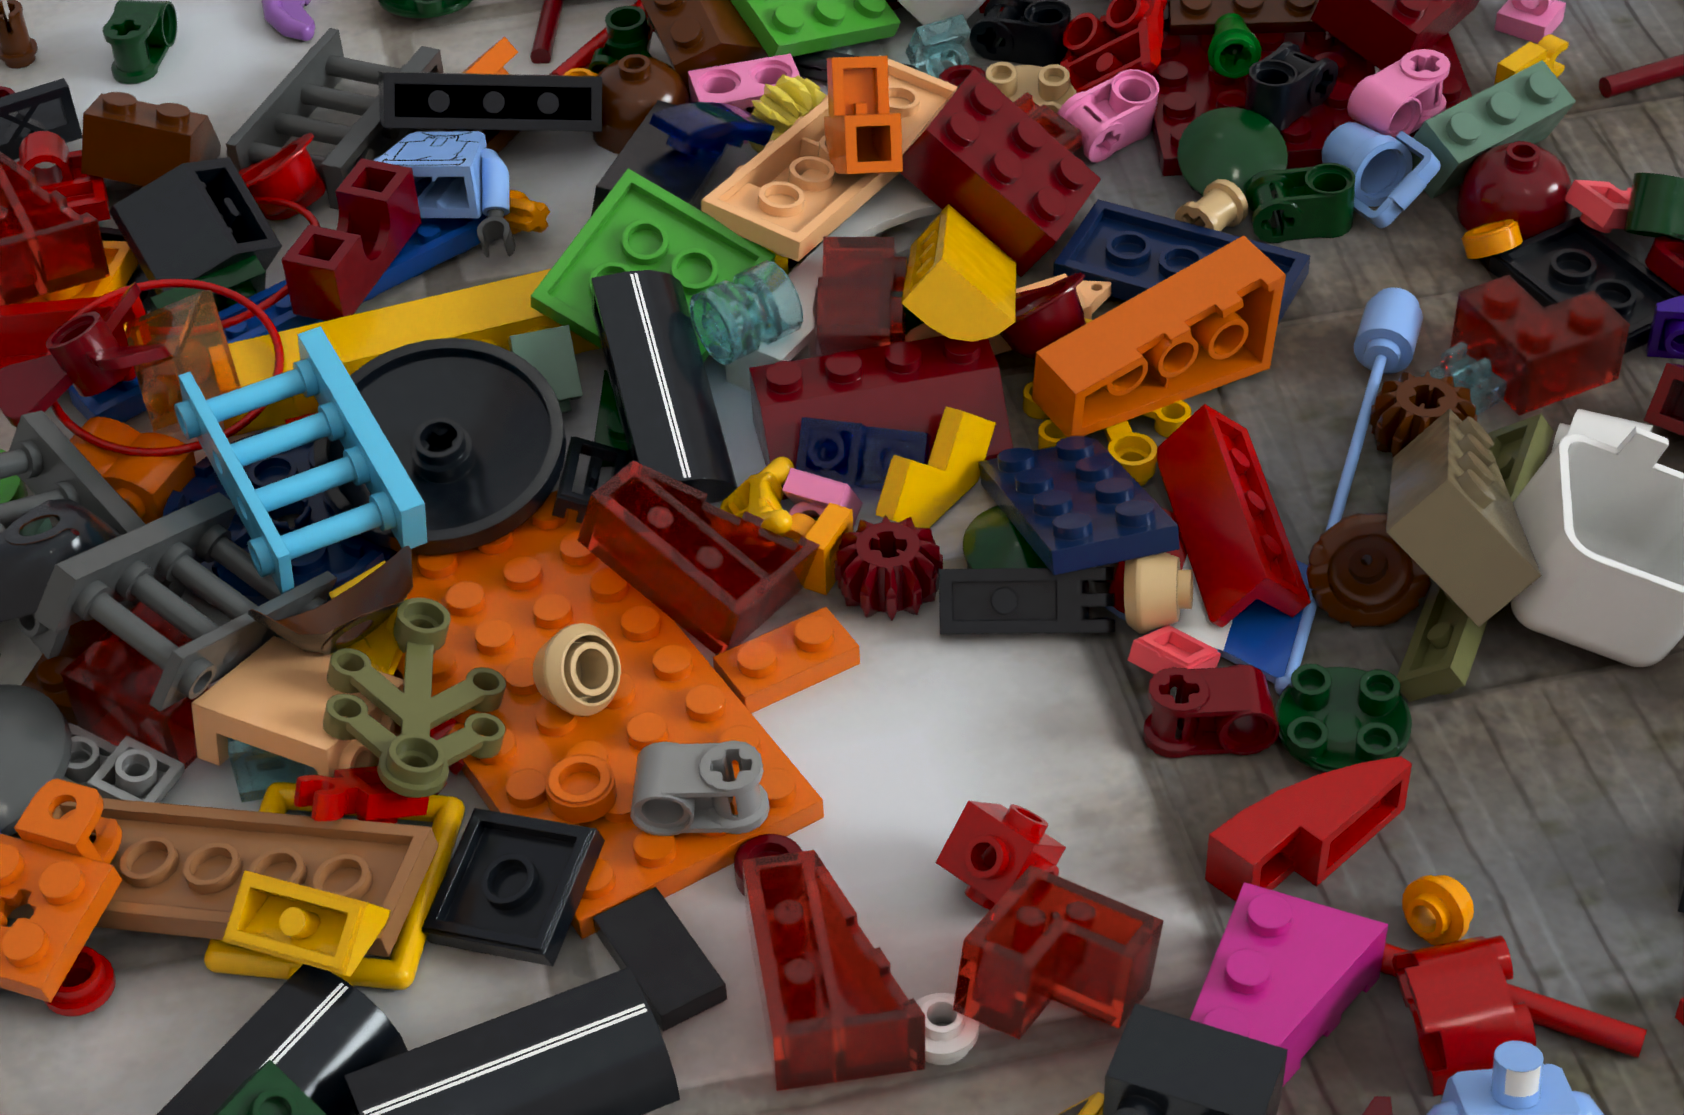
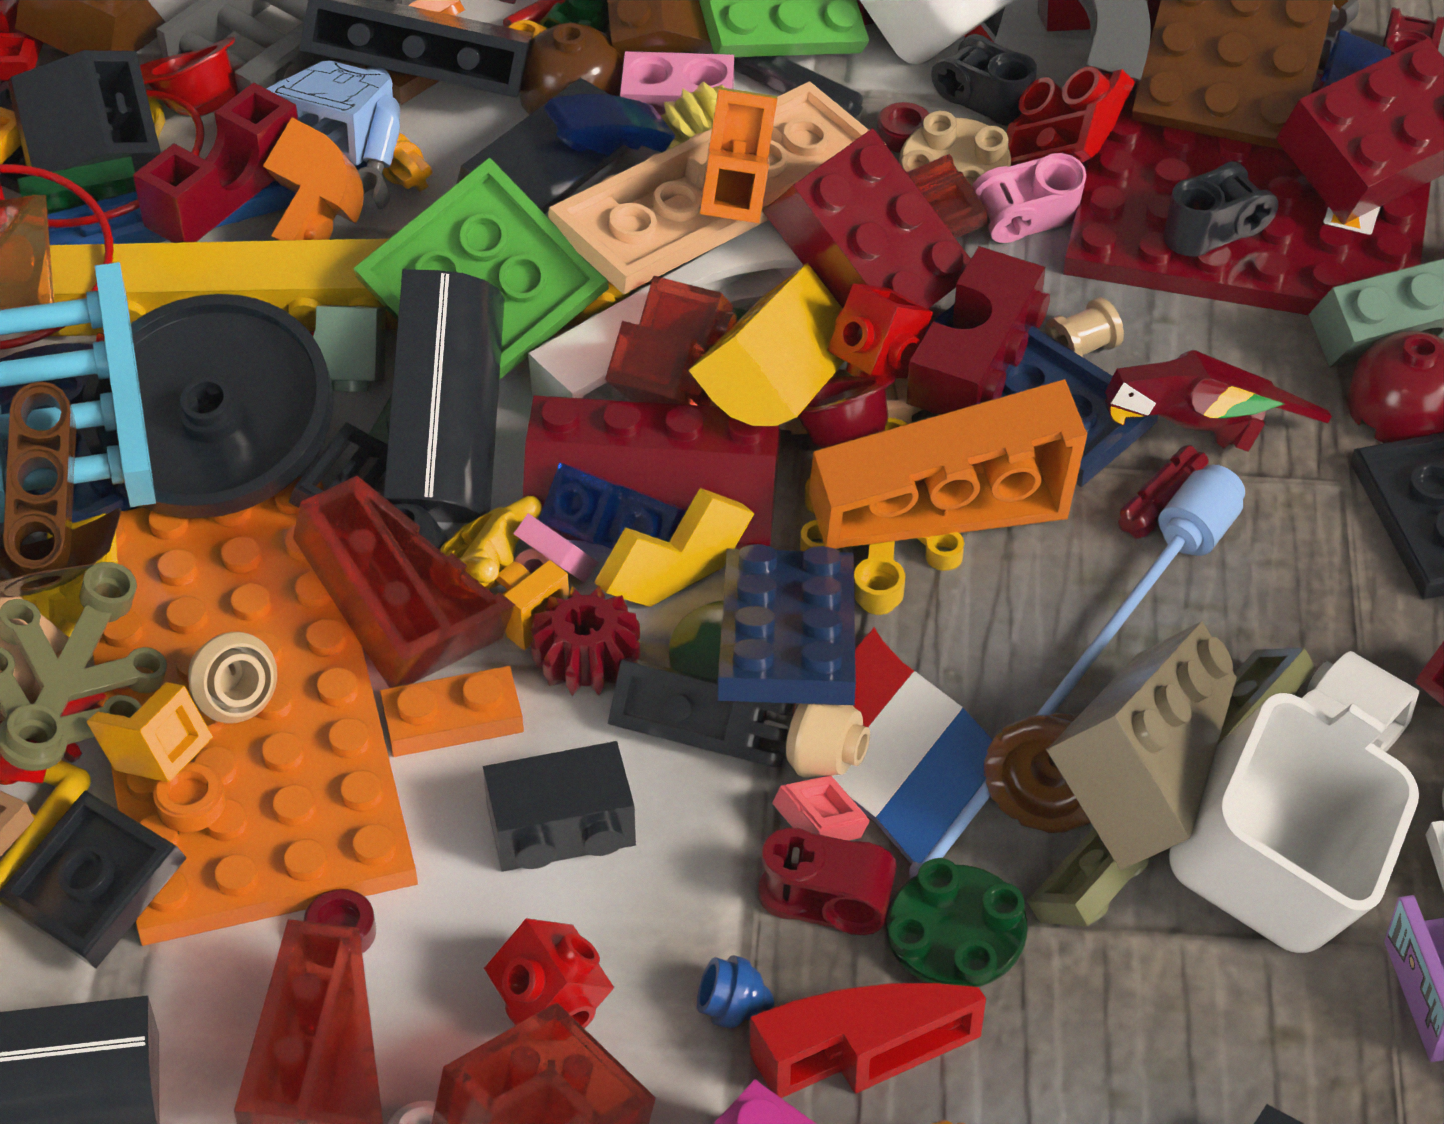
camera: 15 degrees right, 5 degrees up
(323, 506) = (31, 451): none -> reddish brown beam
(452, 230) = (321, 178): none -> orange brick
(532, 743) = (156, 737): none -> light orange panel
(662, 957) = (198, 988): black tile -> none
(692, 788) = (283, 827): light grey piece -> none
(746, 312) = (569, 334): clear light blue wheel -> none
(934, 711) = (560, 806): none -> black brick
(938, 43) = (894, 73): clear light blue tile -> none
(1044, 244) = (878, 331): none -> red brick
(1130, 228) = (994, 310): none -> dark red arch
(1168, 826) = (732, 992): none -> blue plate
(1228, 518) = (940, 678): red panel -> none
(1229, 146) = (1134, 268): dark green dish -> none
(1233, 47) = (1183, 149): green cone -> none
(1306, 202) = (1179, 331): dark green piece -> none
(1342, 327) = (1143, 511): none -> dark red axle
(1347, 238) = (1203, 396): none -> dark red animal
(1380, 169) = (1276, 323): light blue piece -> none
(1401, 94) = (1328, 253): bright pink piece -> none
(1412, 405) = (1187, 599): reddish brown gear -> none
(1484, 385) = (1255, 589): clear light blue tile -> none
(1491, 239) = (1361, 432): light orange tile -> none
(1539, 349) = (1346, 574): clear red brick -> none

